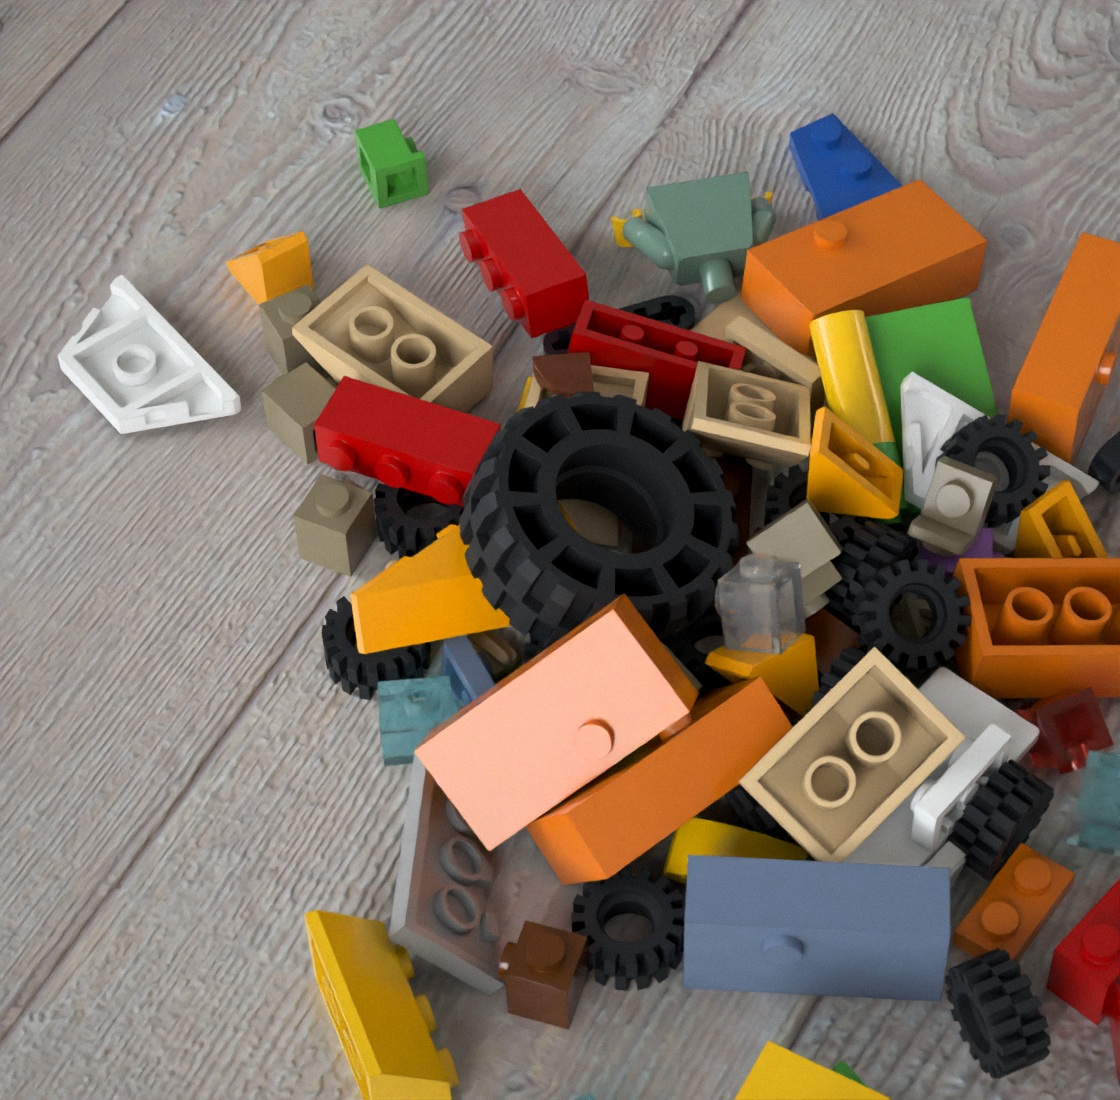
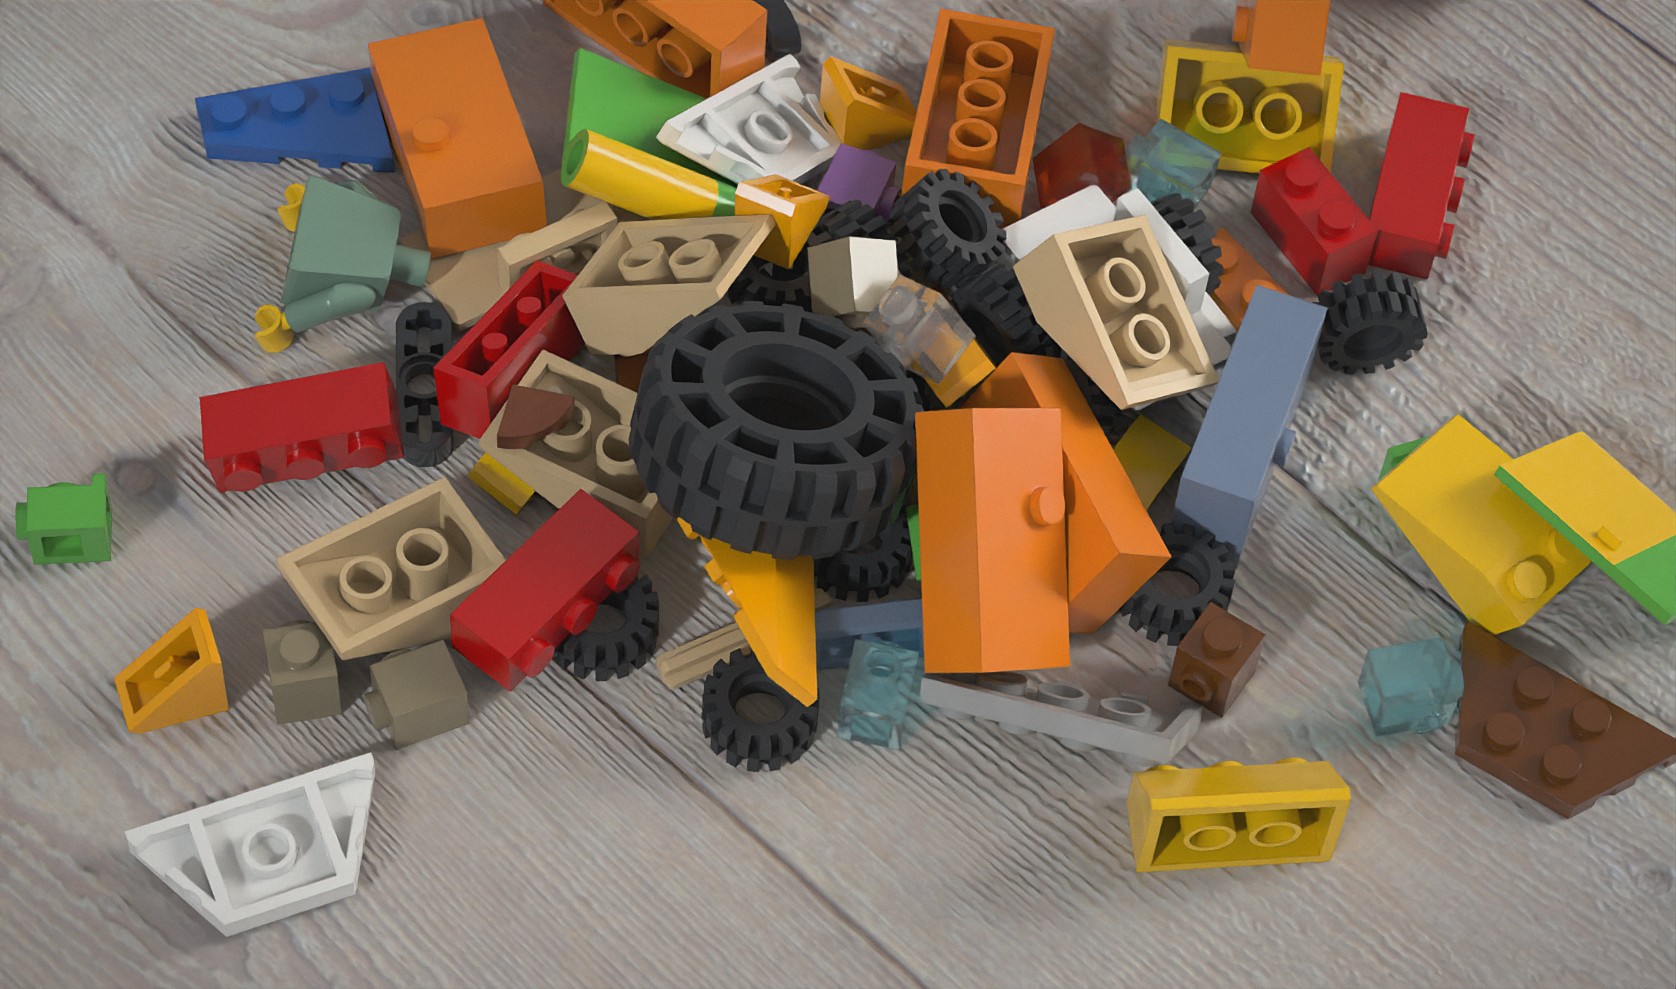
camera: 80 degrees left, 5 degrees up
(335, 524) = (596, 701): dark tan brick -> none
(954, 508) = (834, 153): dark tan bracket -> none
(1015, 453) = (785, 114): black tyre -> none

